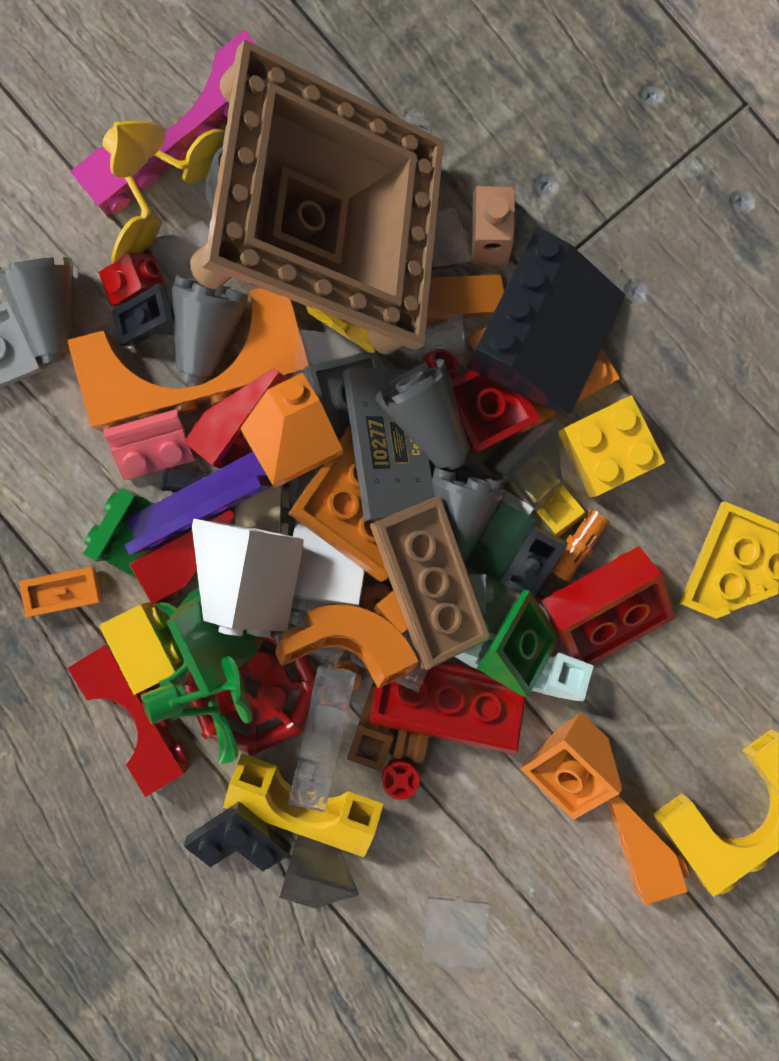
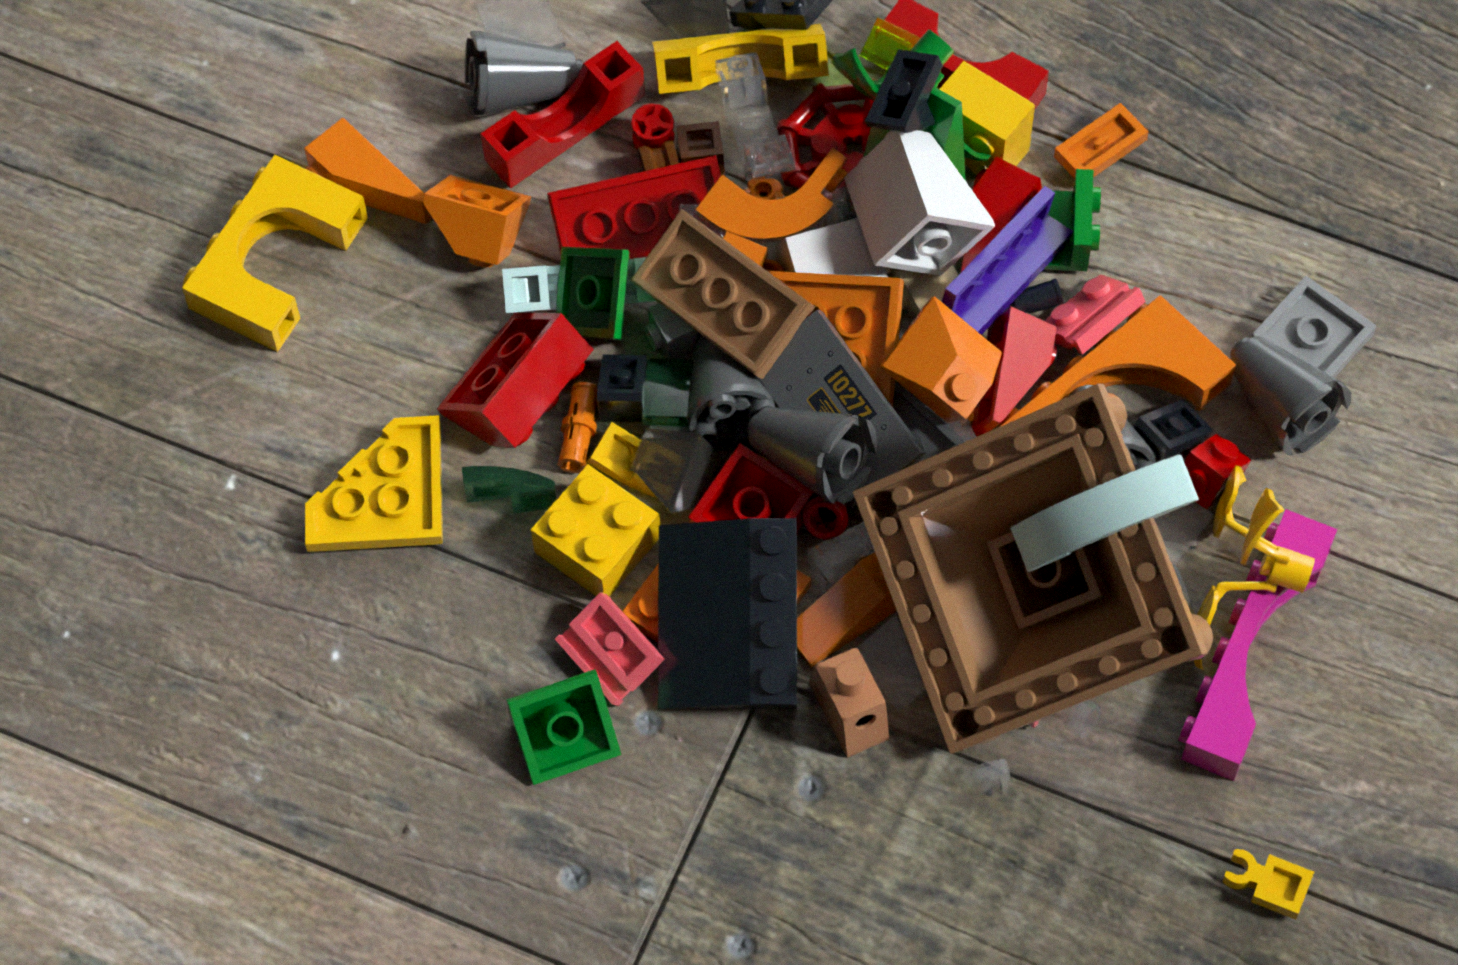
camera: 155 degrees right, 25 degrees down
(178, 743) = (885, 41): none -> clear neon green brick
(211, 649) = (904, 93): none -> black slope
(256, 173) = (1103, 511): none -> light aqua slope
(434, 828) = (601, 91): none -> red arch
(485, 880) = (514, 72): none -> dark grey cone
(642, 351) = (612, 645): none -> coral plate
(648, 513) = (526, 489): none -> clear green slope
(704, 307) = (563, 727): none -> green slope

